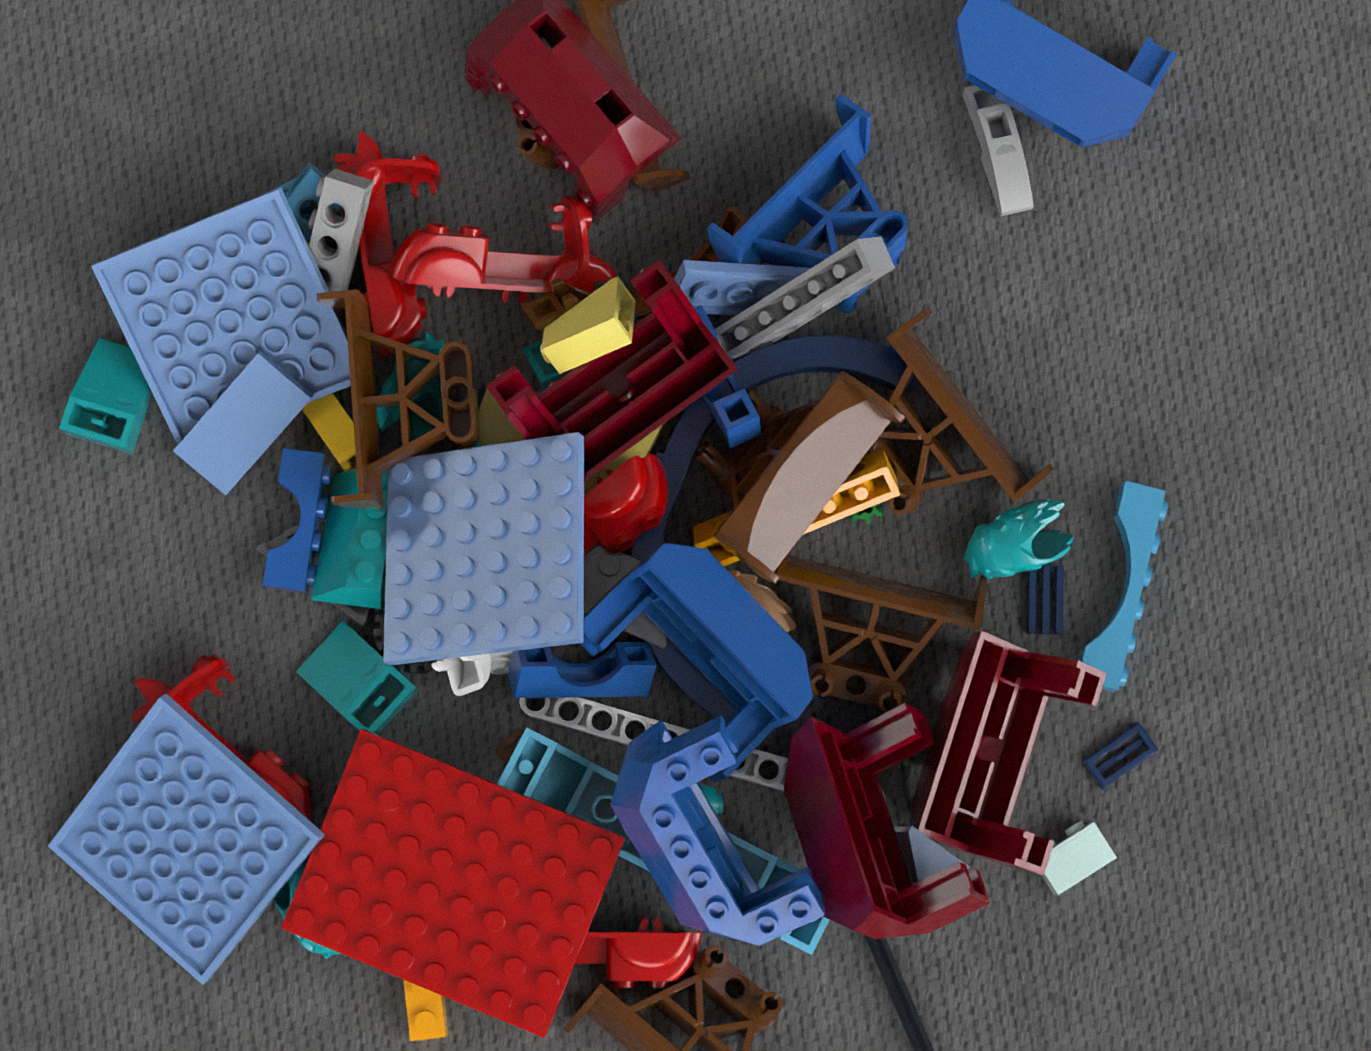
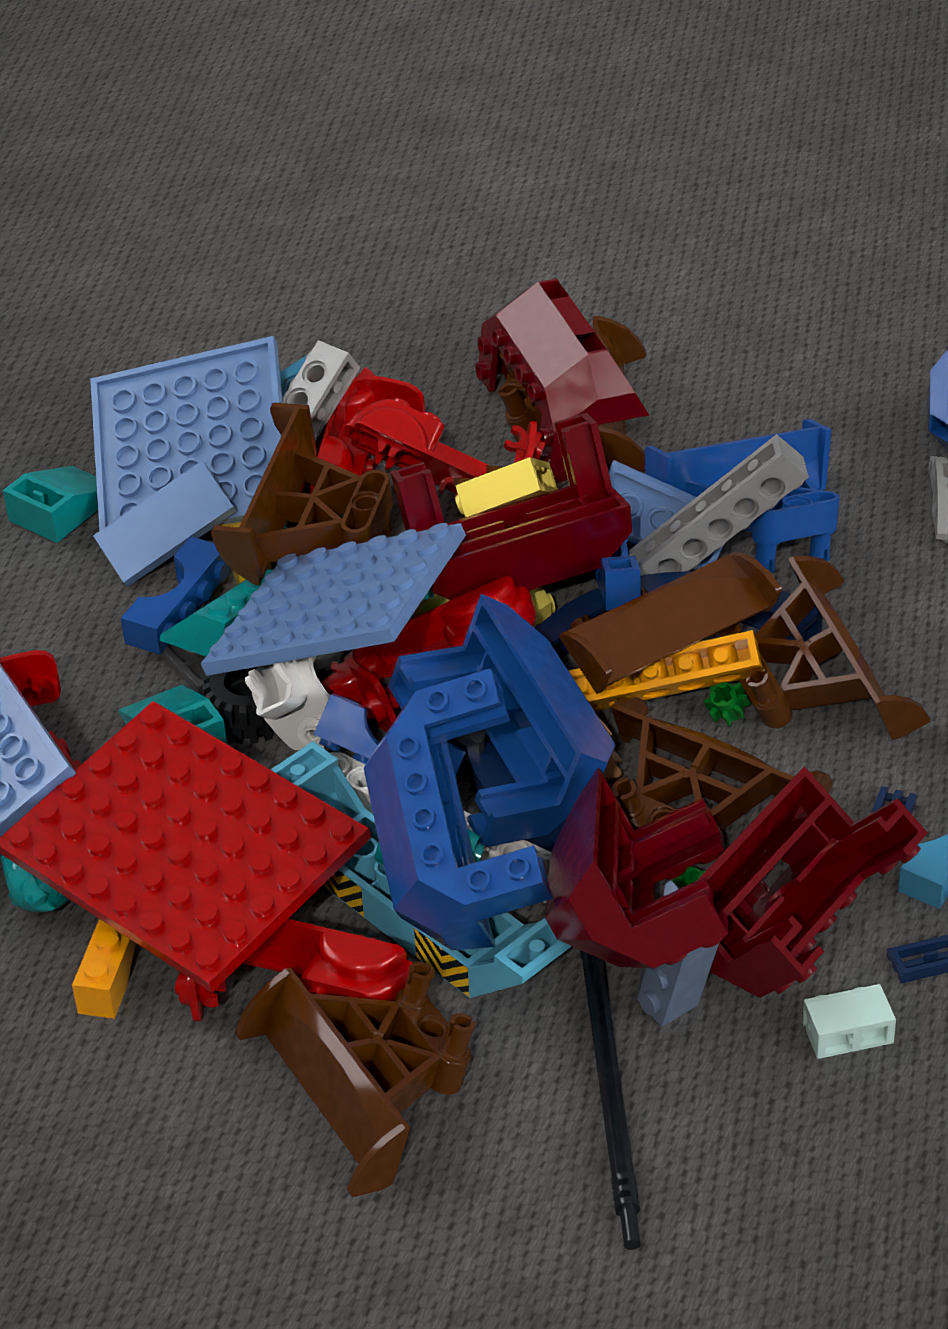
camera: 25 degrees right, 40 degrees down
(1015, 541) = (856, 752): teal head -> none

